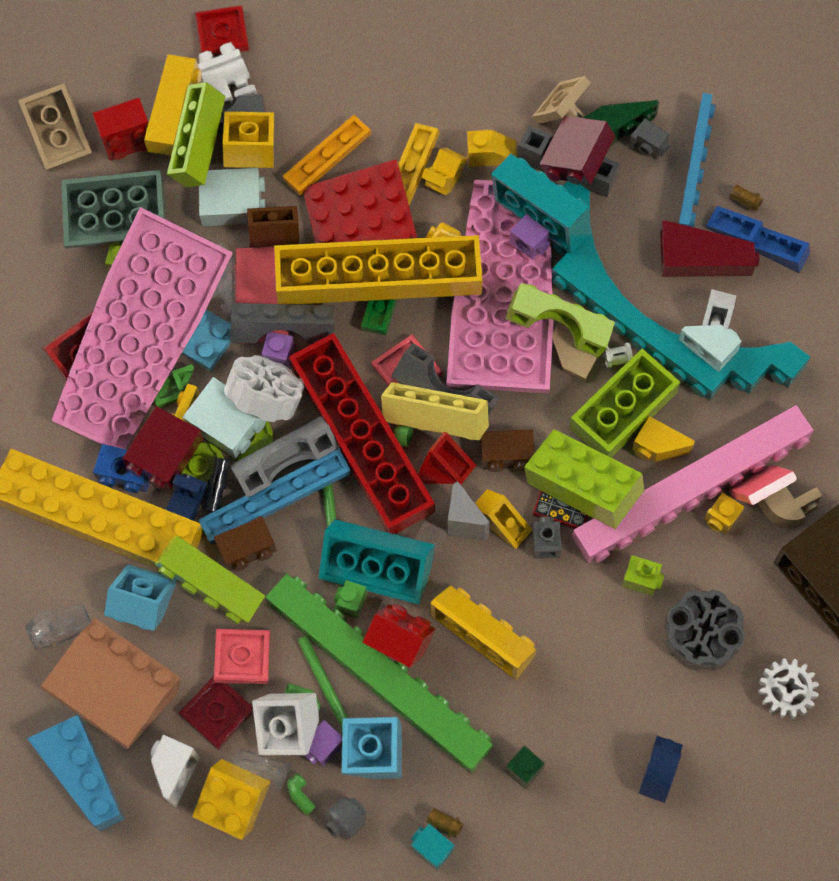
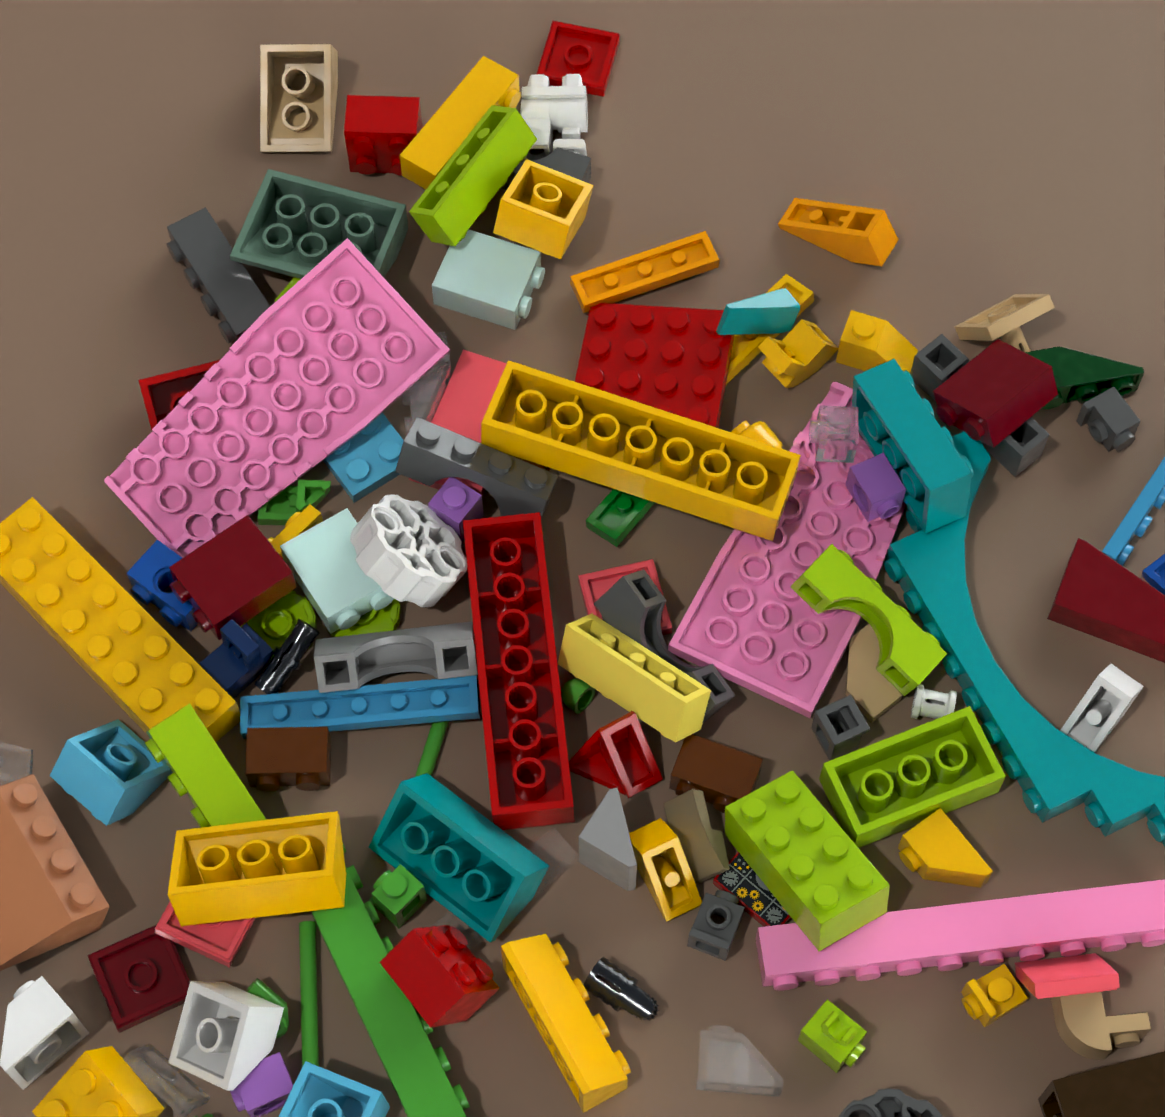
camera: 20 degrees right, 5 degrees down
(65, 265) = (224, 283): none -> dark grey brick
(262, 617) = (258, 869): none -> yellow slope
(273, 226) = (525, 337): reddish brown brick -> none
(414, 155) = (760, 314): none -> teal slope
(439, 81) = (845, 230): none -> light orange slope
(491, 213) = (835, 434): none -> clear brick
(516, 602) = (629, 998): none -> black hinge
(519, 494) = (701, 844): none -> dark tan slope
(569, 392) = (839, 727): none -> dark grey brick
(592, 615) = (734, 1065): none -> clear slope
(711, 343) = (1076, 739): light aqua slope -> none

